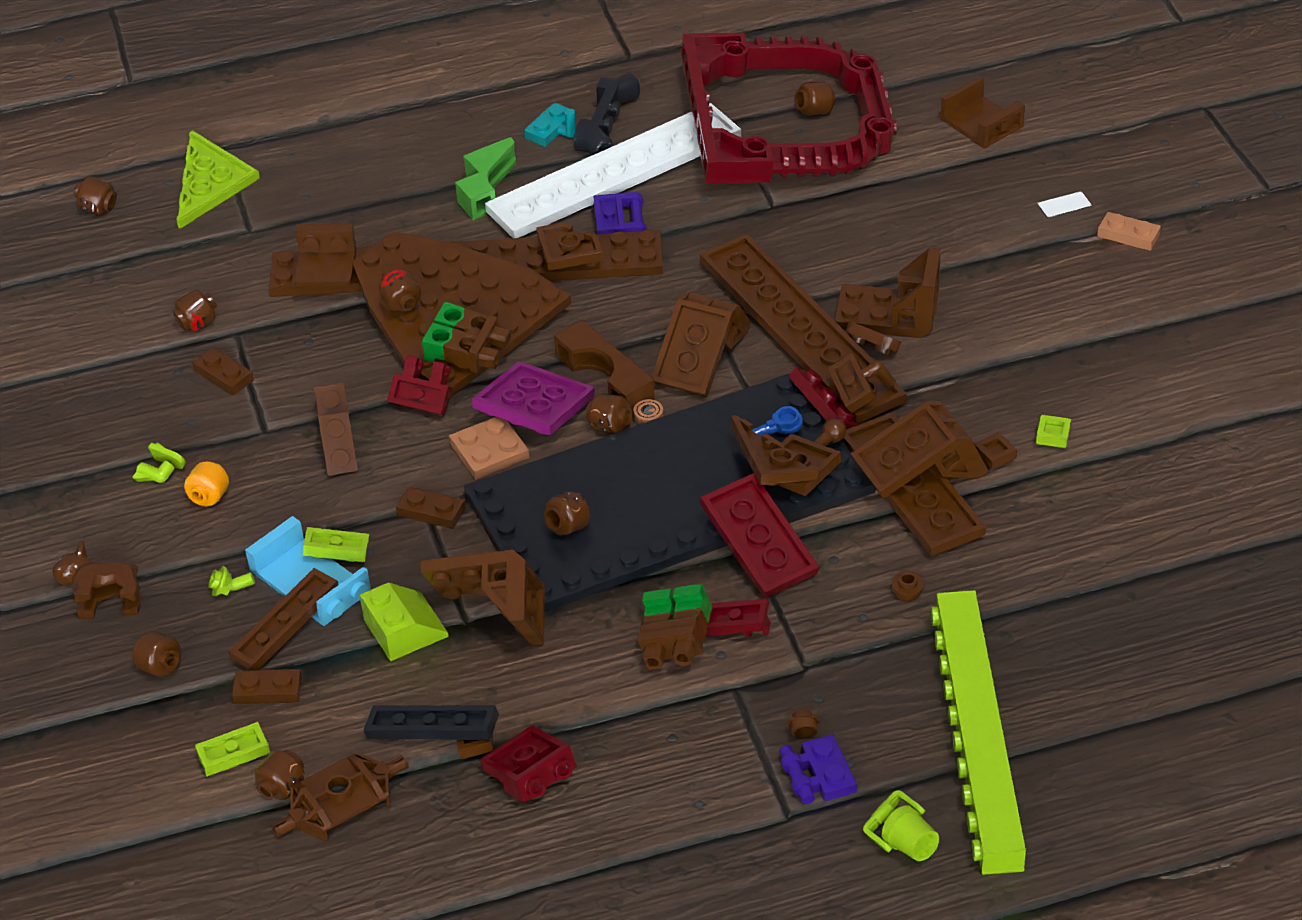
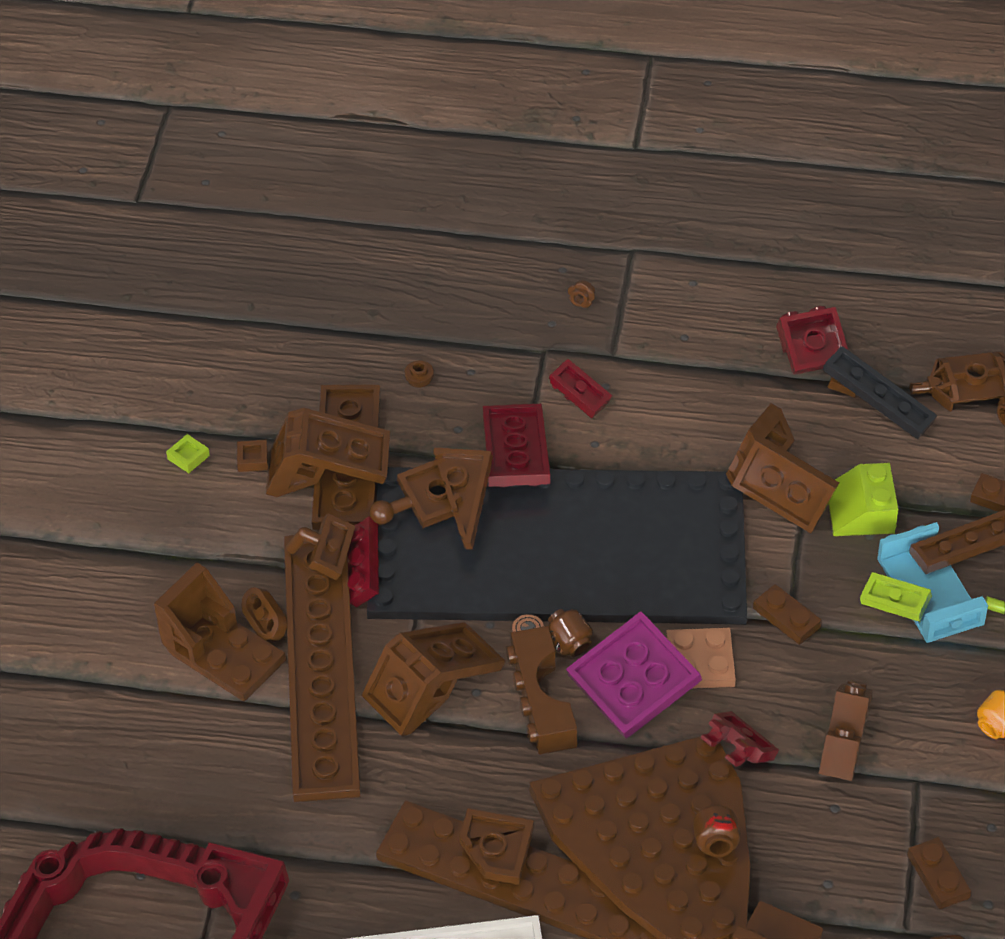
camera: 155 degrees left, 5 degrees up
(465, 338) = (675, 749): reddish brown hips -> none
(566, 513) = (672, 524): reddish brown head -> none
(610, 212) = (415, 900): dark purple plate -> none
(674, 625) = (643, 386): reddish brown hips -> none
(785, 421) = (416, 545): blue plate -> none
(827, 766) = (584, 260): dark purple plate -> none
(903, 828) = (562, 192): lime piece -> none
(978, 734) = (452, 246): lime brick -> none

